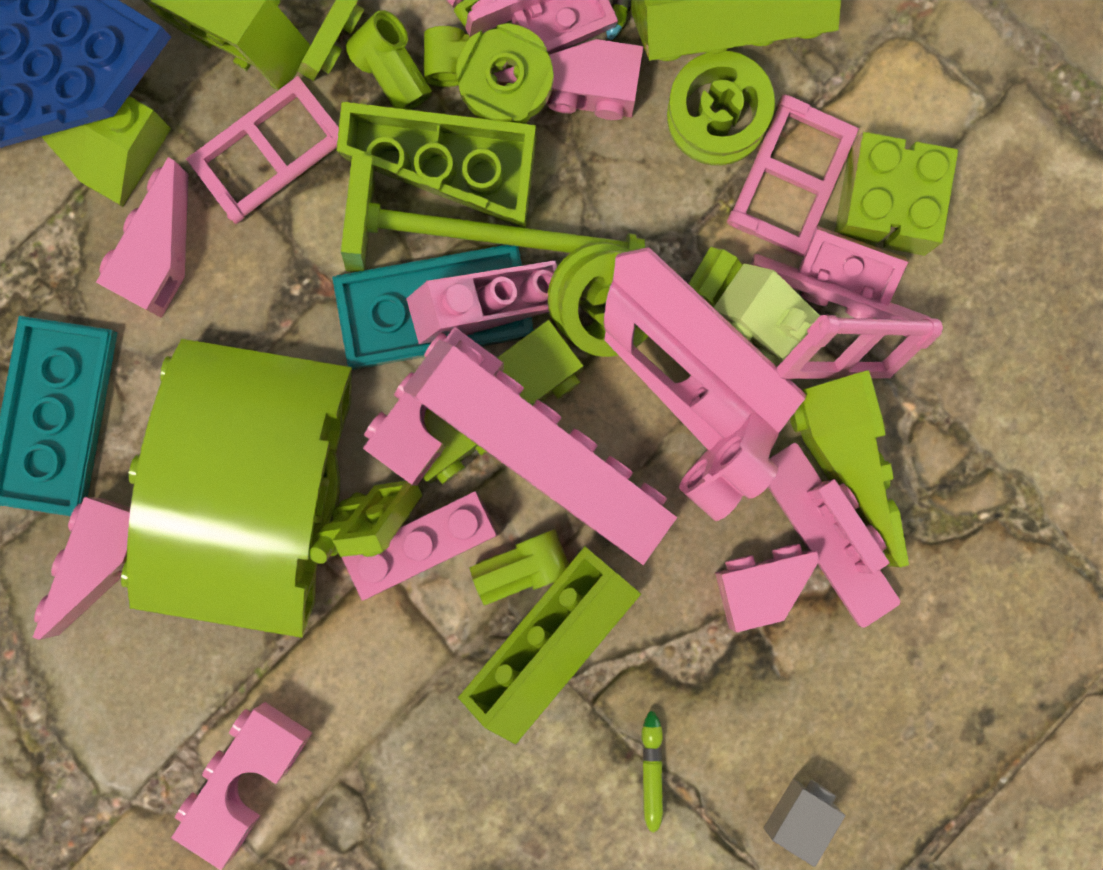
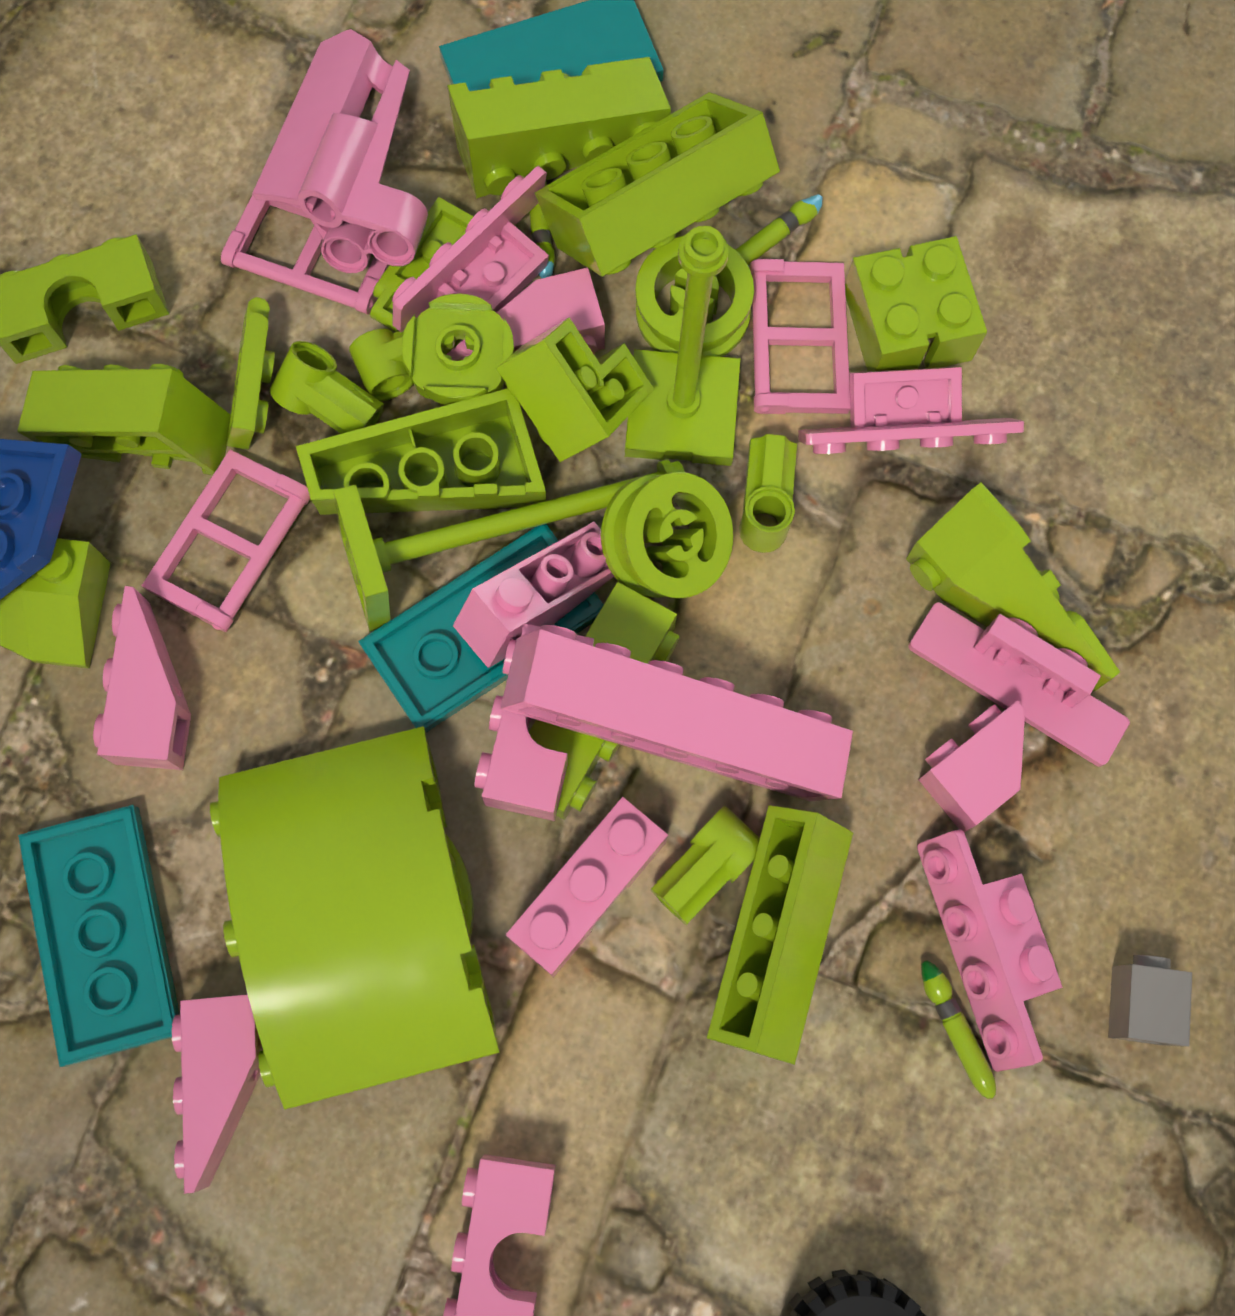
camera: 25 degrees left, 10 degrees down
(365, 523) = (517, 885): lime plate -> none
(577, 150) = (570, 391): none -> lime brick
(670, 185) = (693, 394): none -> lime tile
(710, 725) = (994, 947): none -> bright pink bracket
(733, 391) = (849, 583): bright pink panel -> none
(766, 311) = (850, 481): yellowish green brick -> none
(796, 364) = (917, 455): bright pink window -> none
(843, 70) = (799, 214): none -> lime piece

